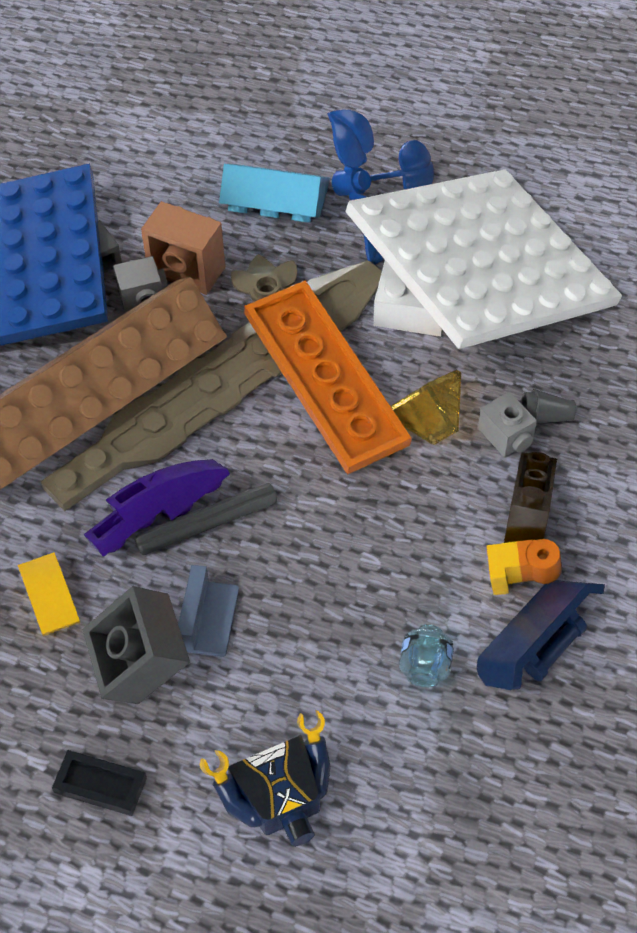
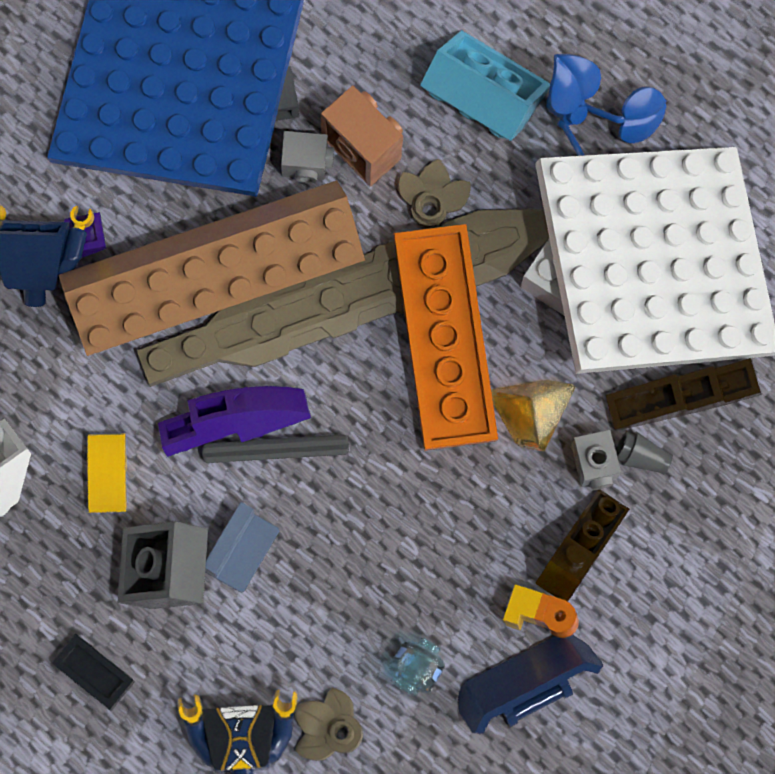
camera: 15 degrees right, 20 degrees up
(356, 745) = (322, 724): none -> dark tan plate
(557, 354) = (683, 394): none -> dark brown slope

